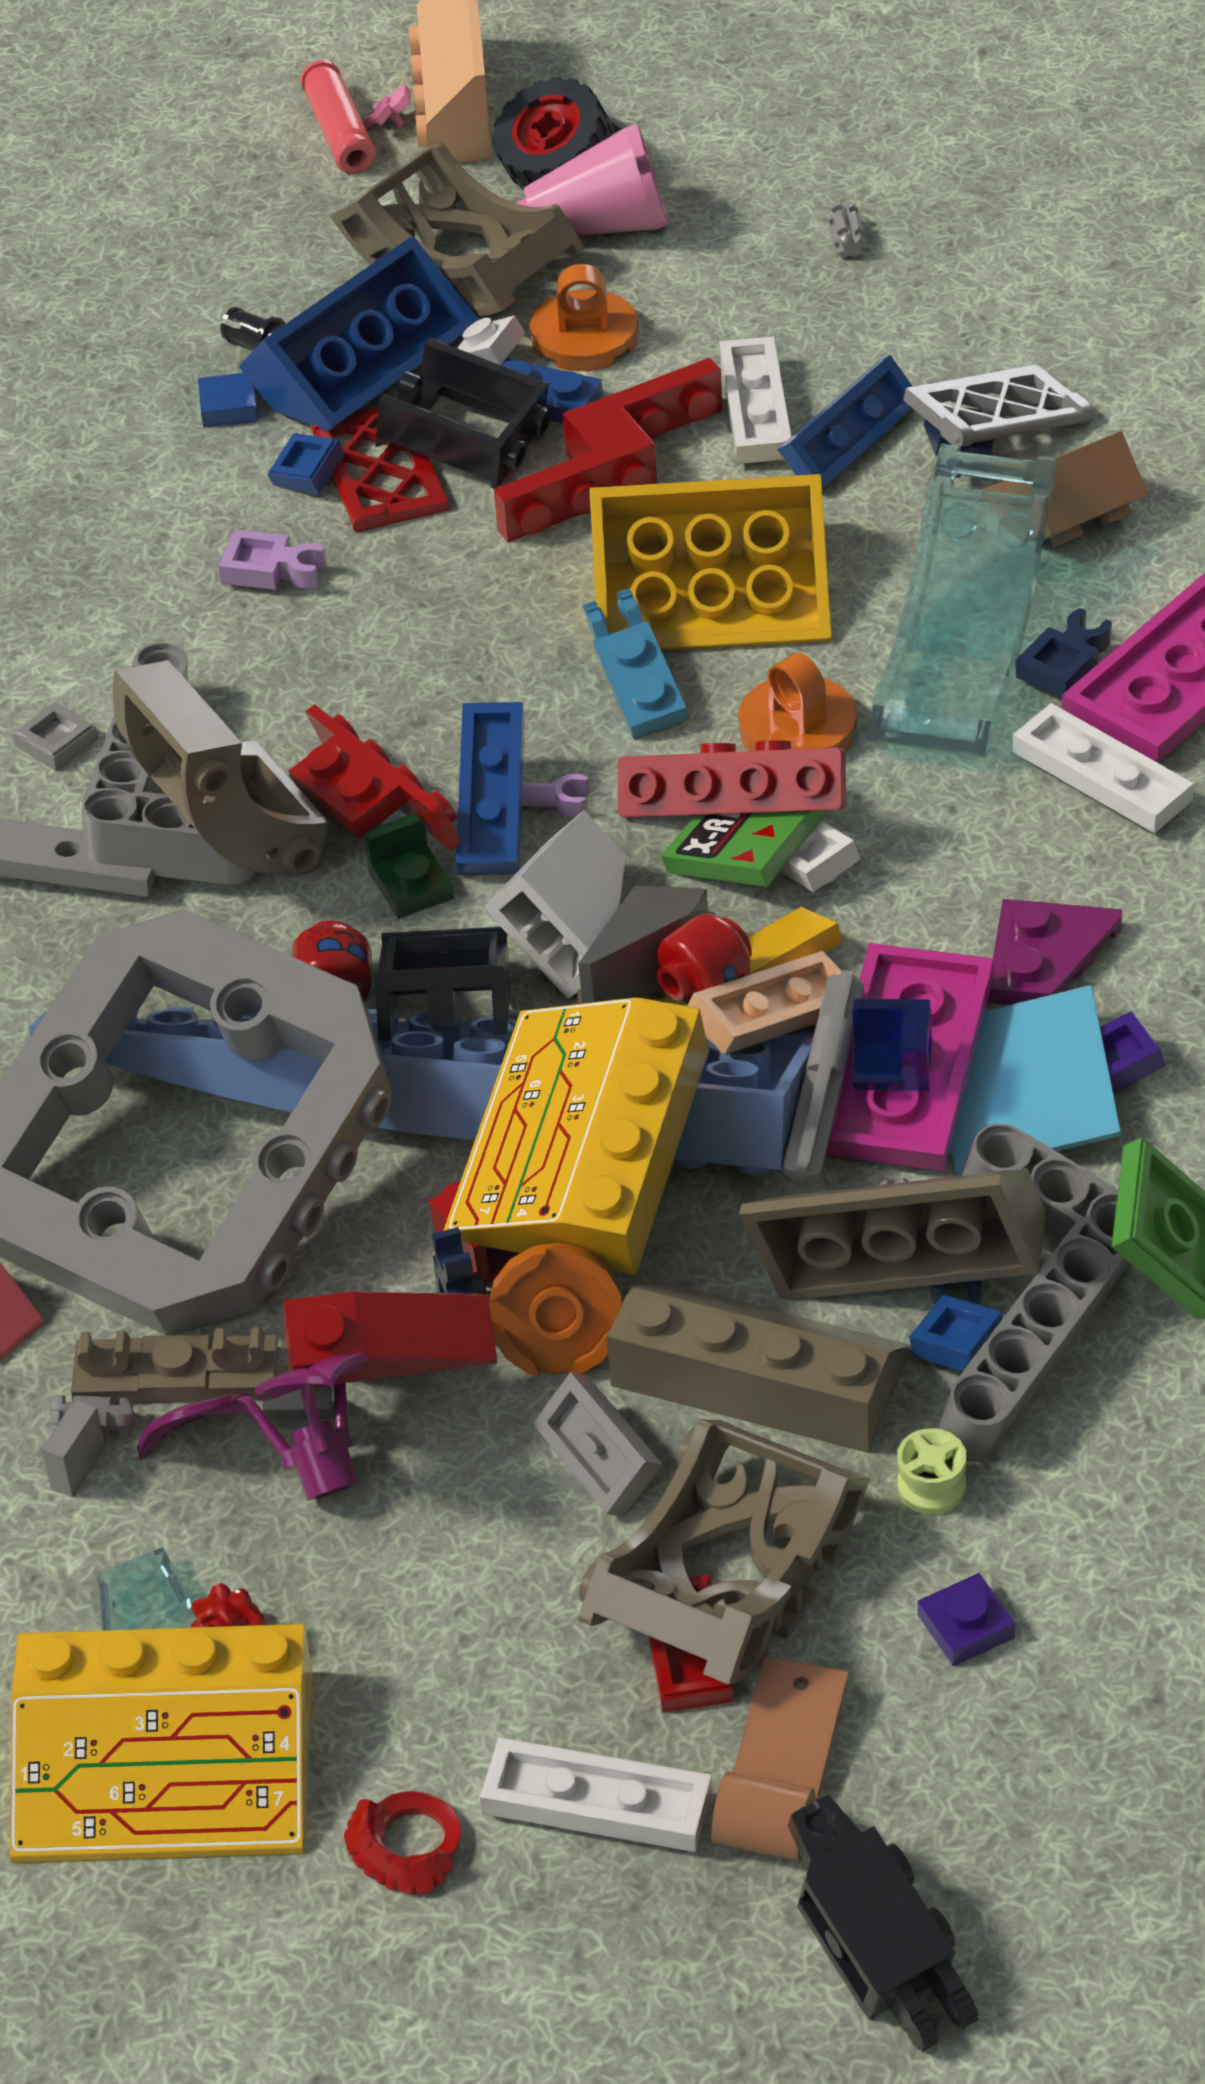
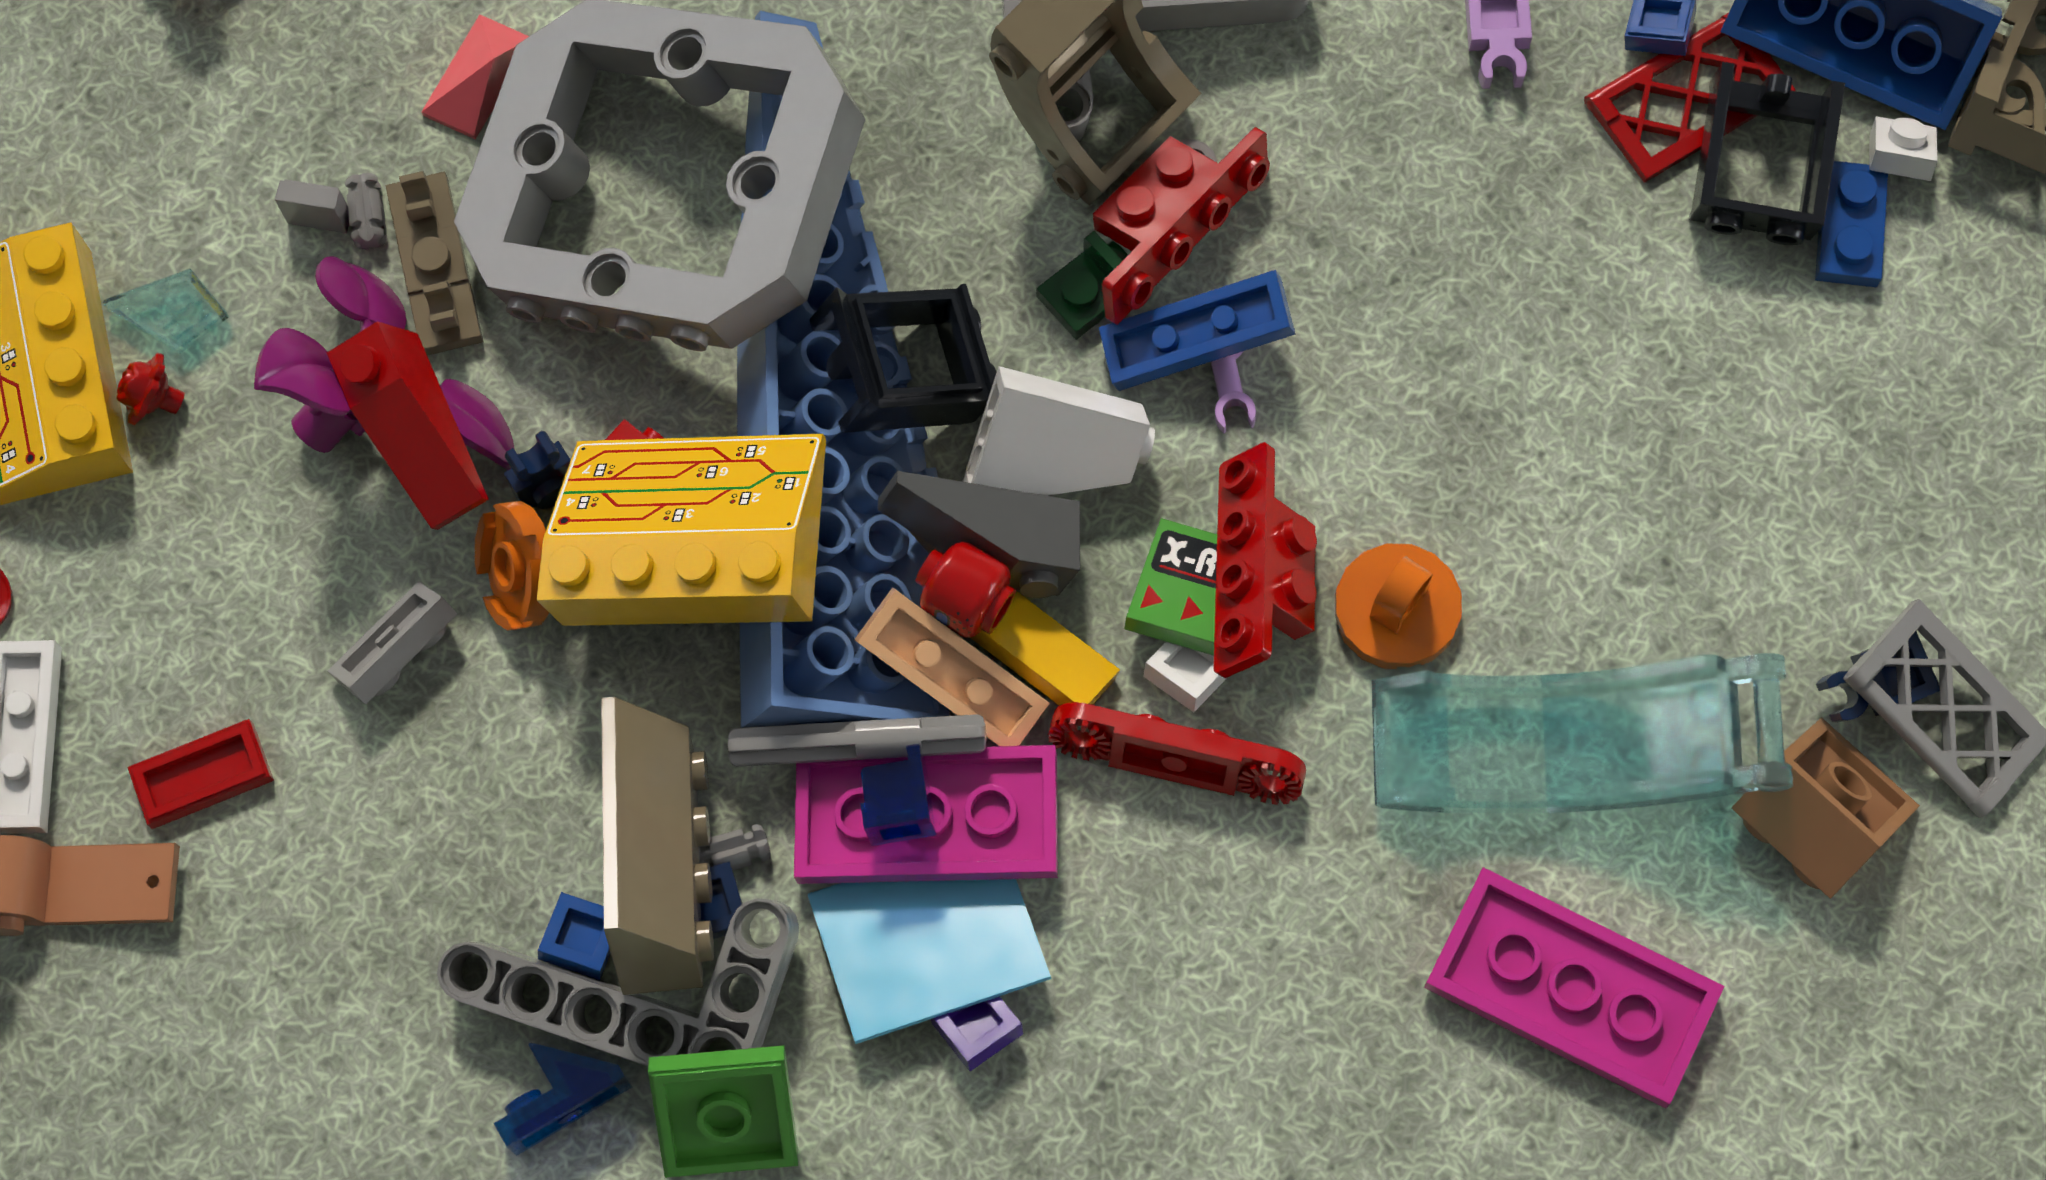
camera: 75 degrees right, 25 degrees up
(338, 951) = (924, 251): red head -> none
(583, 325) = (1970, 240): orange tile -> none
(608, 447) = (1760, 317): red bracket -> none
(636, 669) = (1425, 425): dark azure hinge -> none
(665, 1604) = (330, 852): dark tan fence -> none
(715, 560) = (1594, 464): yellow slope -> none
(754, 398) = (1893, 446): white plate -> none
(754, 1363) = (524, 760): dark tan slope -> none
(849, 423) = (1874, 554): blue plate -> none
(896, 873) = (1177, 752): none -> red plate
(939, 1456) = (403, 936): yellowish green wheel -> none
(966, 1619) = (261, 1012): dark purple plate -> none
(1046, 947) = (1120, 921): magenta wing -> none
(1062, 659) = (1551, 855): dark blue plate -> none
(1103, 768) = (1392, 930): white plate -> none
(1116, 1361) = (578, 1088): none -> clear blue slope

